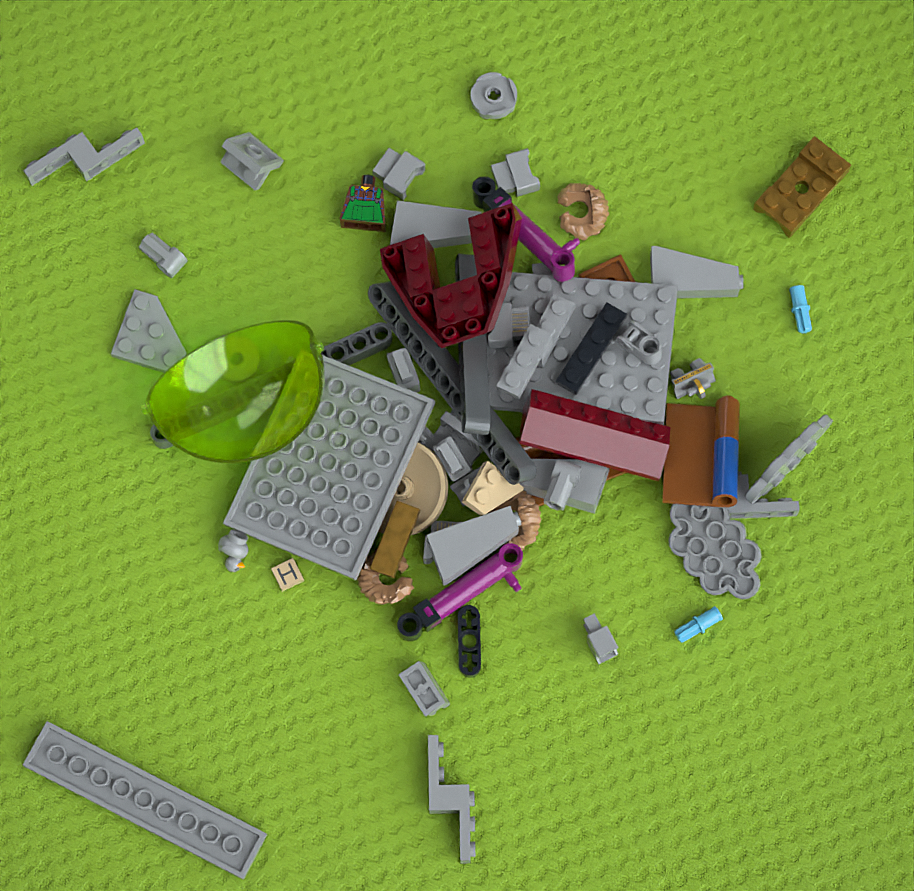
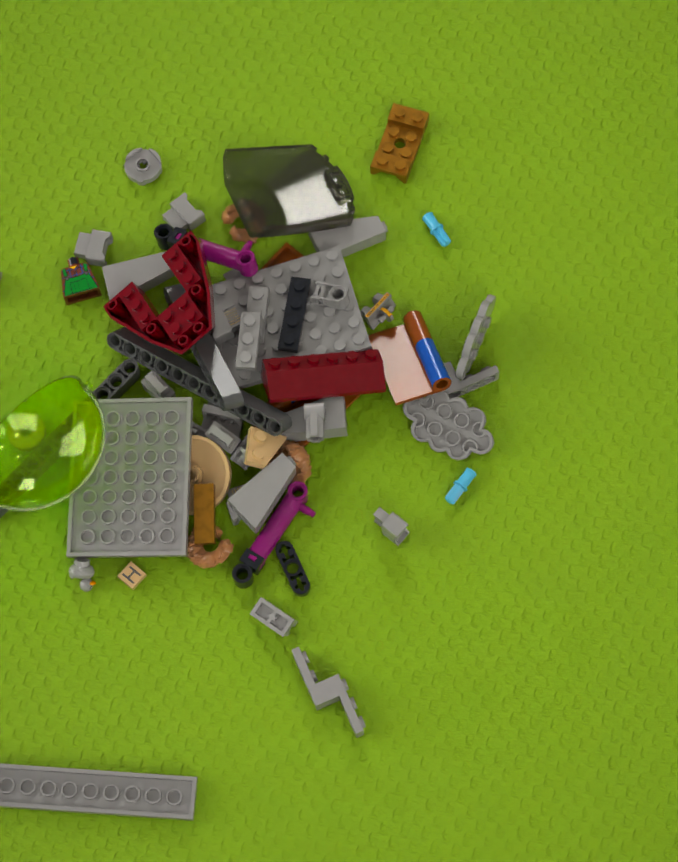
camera: 20 degrees left, 5 degrees down
(646, 195) = (287, 190): none -> clear smoke windscreen

